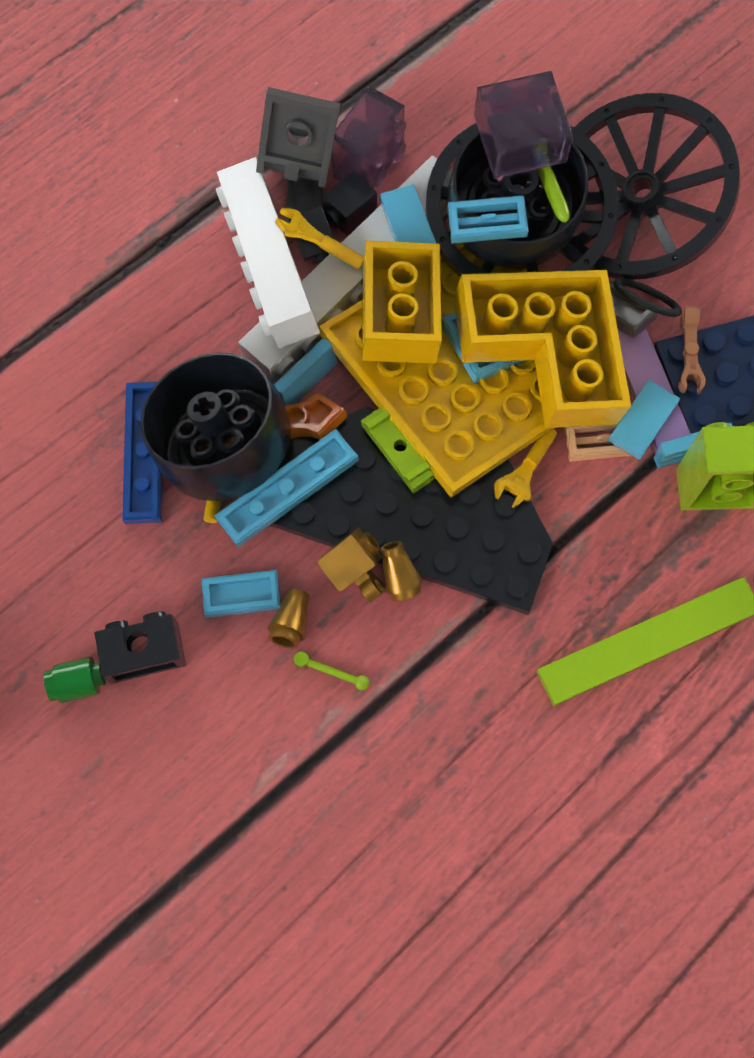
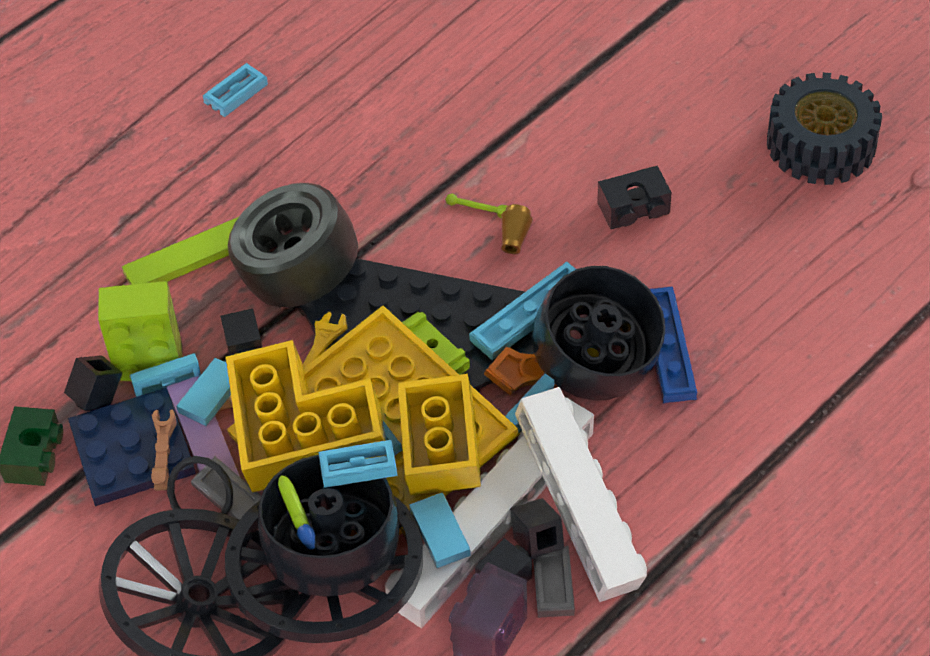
camera: 175 degrees right, 20 degrees down
(73, 680) = (684, 173): green brick -> none
(241, 593) = (559, 248): medium azure tile -> none
(297, 135) = (559, 582): dark grey bracket -> none
(302, 229) = (543, 499): yellow piece -> none
(352, 561) = (467, 260): pearl gold brick -> none
(399, 572) = (424, 258): pearl gold cone -> none
(517, 579) = (304, 262): none -> pearl dark grey wheel
(522, 124) = (324, 525): clear purple brick -> none
(612, 490) = (241, 331): none -> black brick
(615, 932) = (238, 91): none -> medium azure tile

